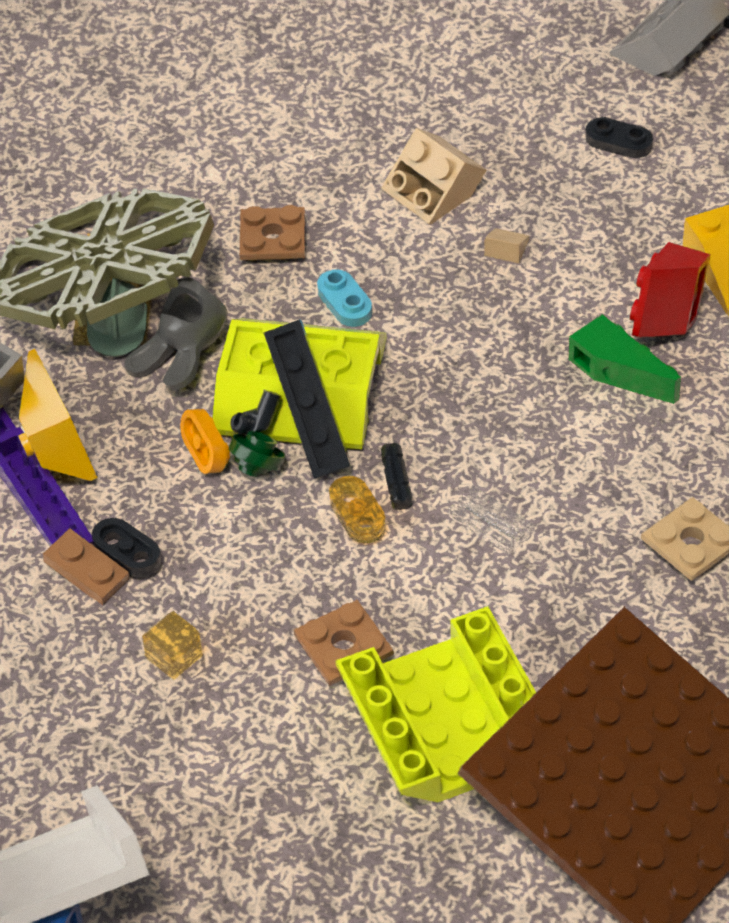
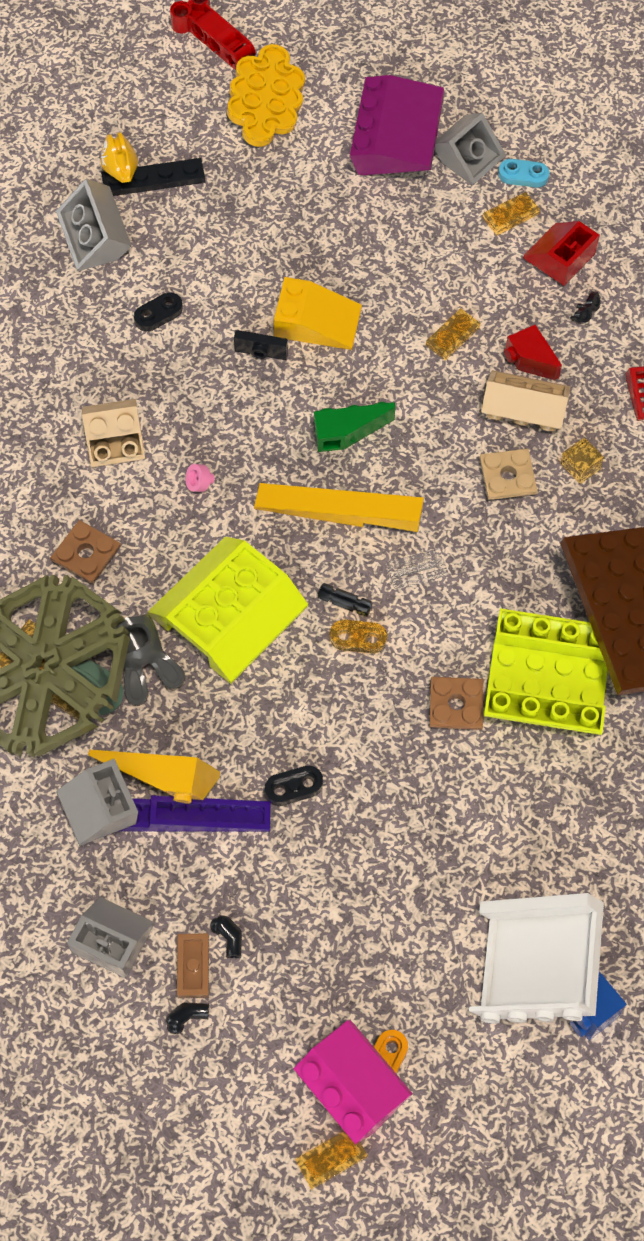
camera: 60 degrees left, 15 degrees up
(85, 566) = (291, 818): medium nougat plate -> none
(172, 645) = (395, 800): clear yellow piece -> none
(204, 441) = (240, 692): light orange plate -> none
(256, 453) = (274, 666): dark green plate -> none
(258, 418) = (253, 648): black arm -> none
(307, 399) = (269, 610): black plate -> none
(341, 291) = (173, 543): medium azure plate -> none
(440, 274) = (198, 478): none -> bright pink tile
(505, 245) = (200, 427): tan slope -> none
(513, 412) = (342, 506): none -> yellow slope
(648, 227) = (261, 345): none -> black plate
(669, 292) = (326, 364): red slope -> none

